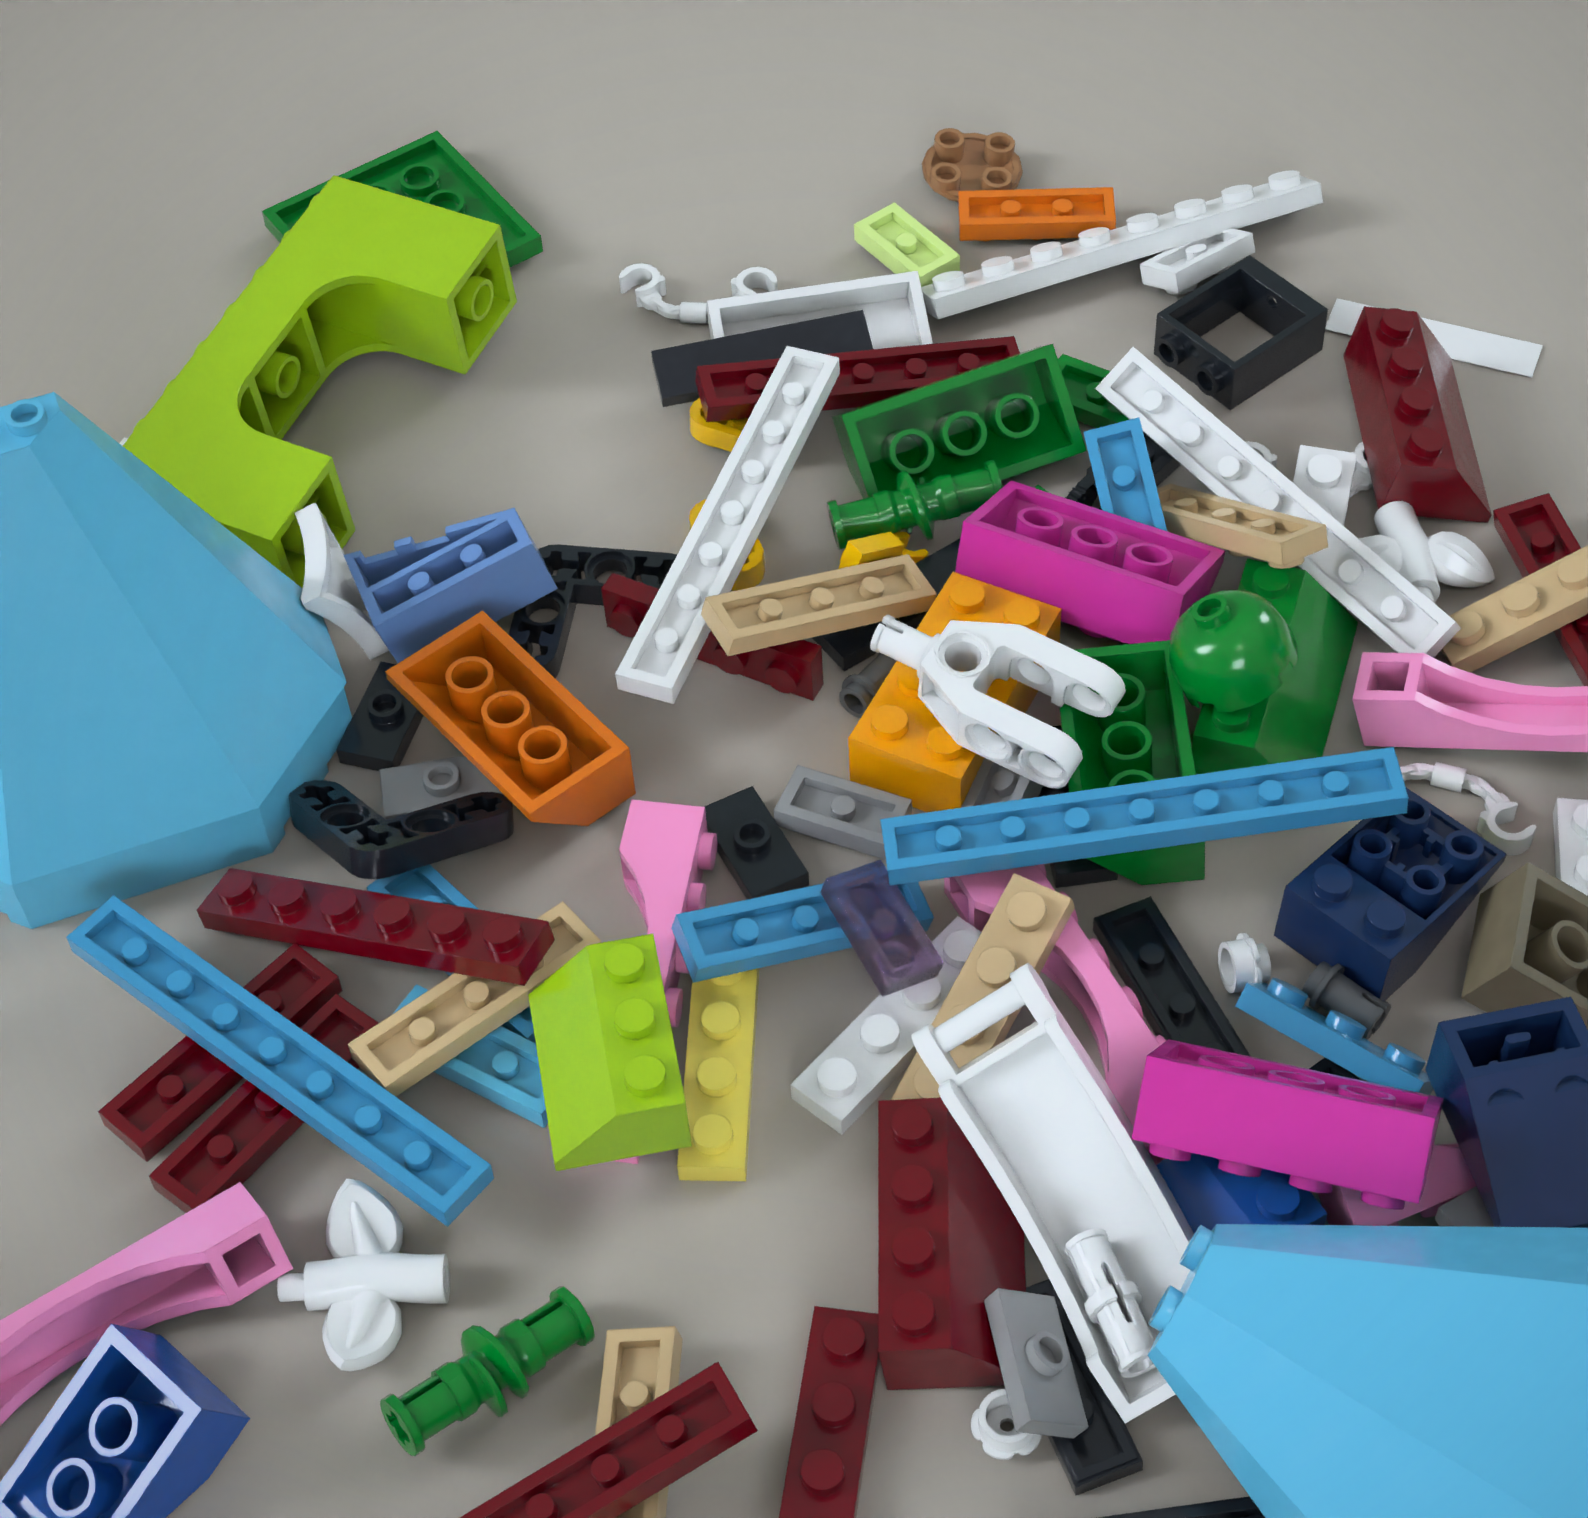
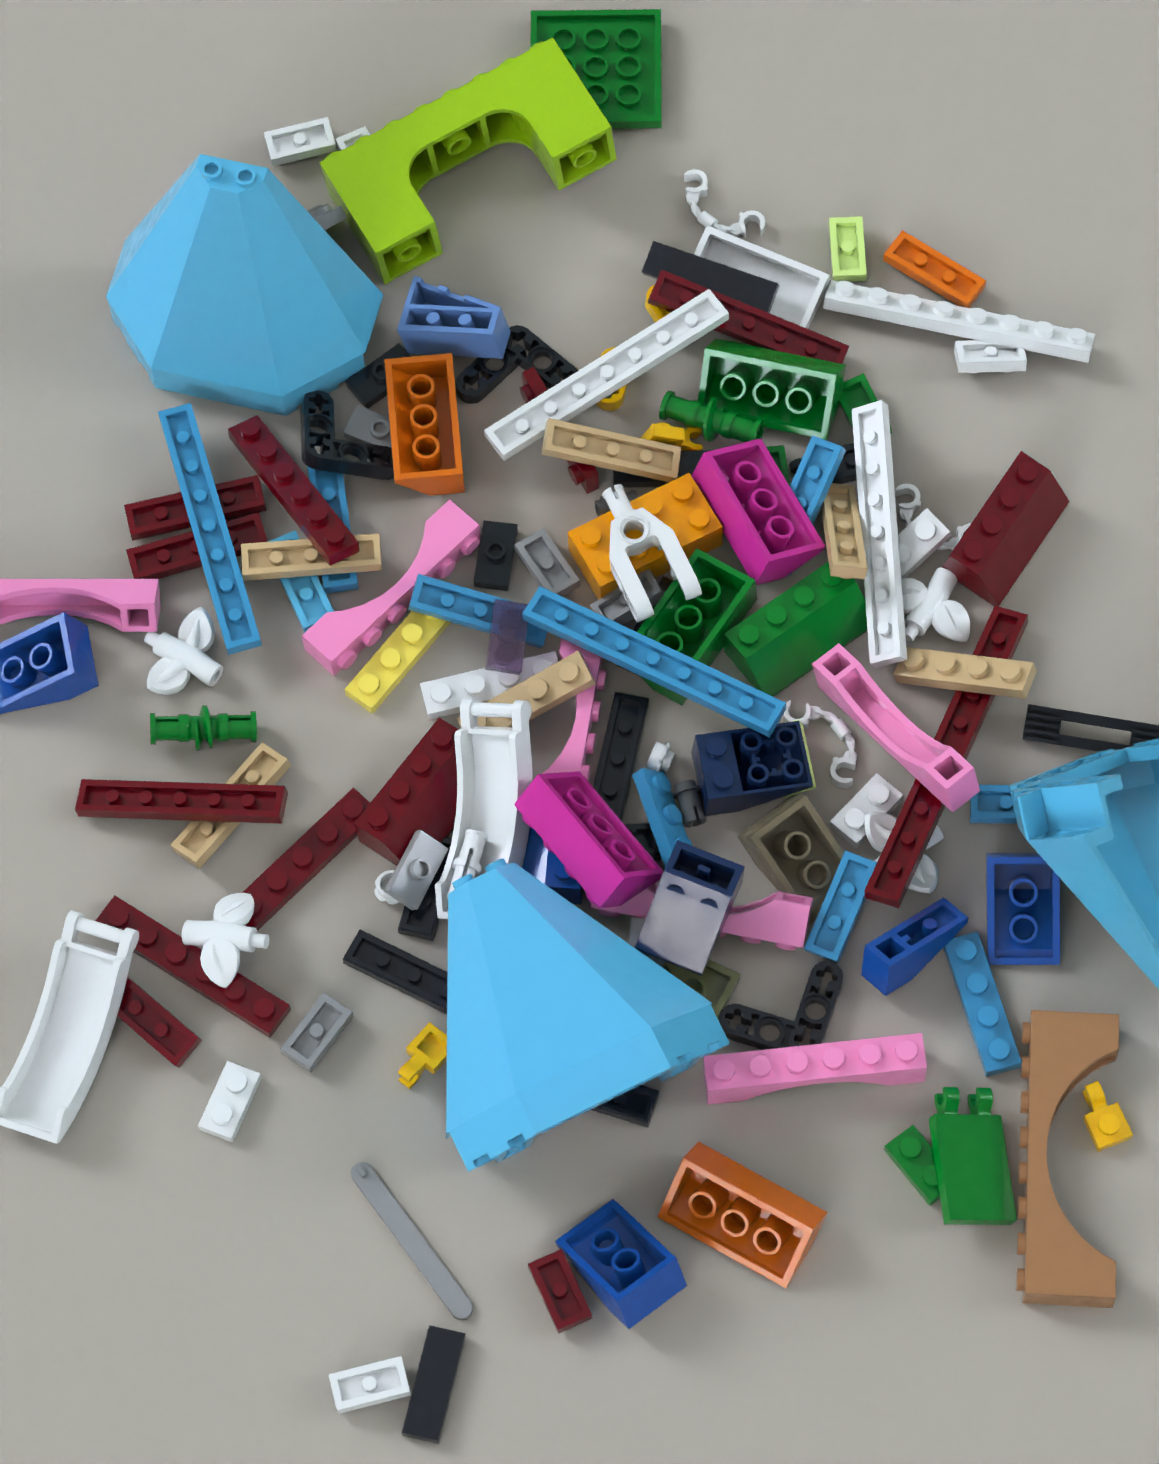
camera: 35 degrees right, 15 degrees up
(330, 585) = (394, 286): white plate -> none
(608, 1056) = (343, 623): lime slope -> none
(971, 163) = (929, 214): medium nougat dish -> none
(1230, 650) = (767, 604): green cylinder -> none
(1246, 288) = (967, 391): black window -> none
(1459, 342) = (1077, 482): white sticker -> none

